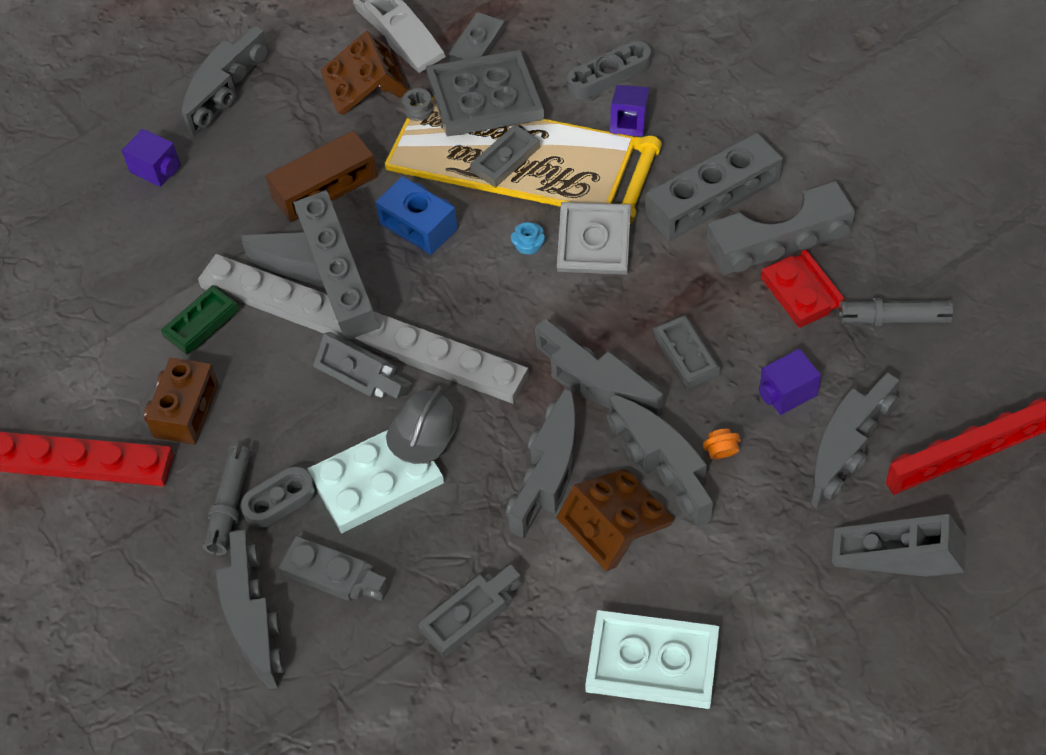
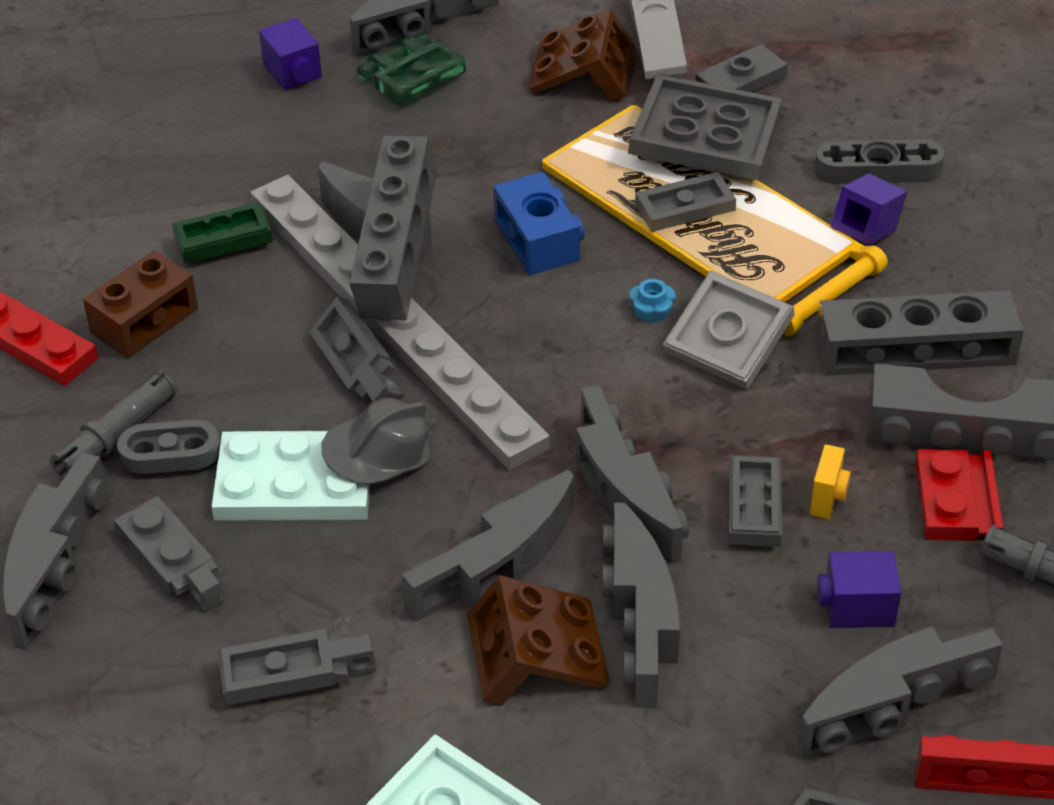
camera: 25 degrees right, 10 degrees down
(253, 133) = (412, 68): none -> clear green plate
(332, 167) = (470, 138): reddish brown brick -> none
(418, 112) = (621, 110): dark grey bush -> none
(722, 444) = (725, 622): orange plate -> none
(724, 317) = (830, 482): none -> yellow plate

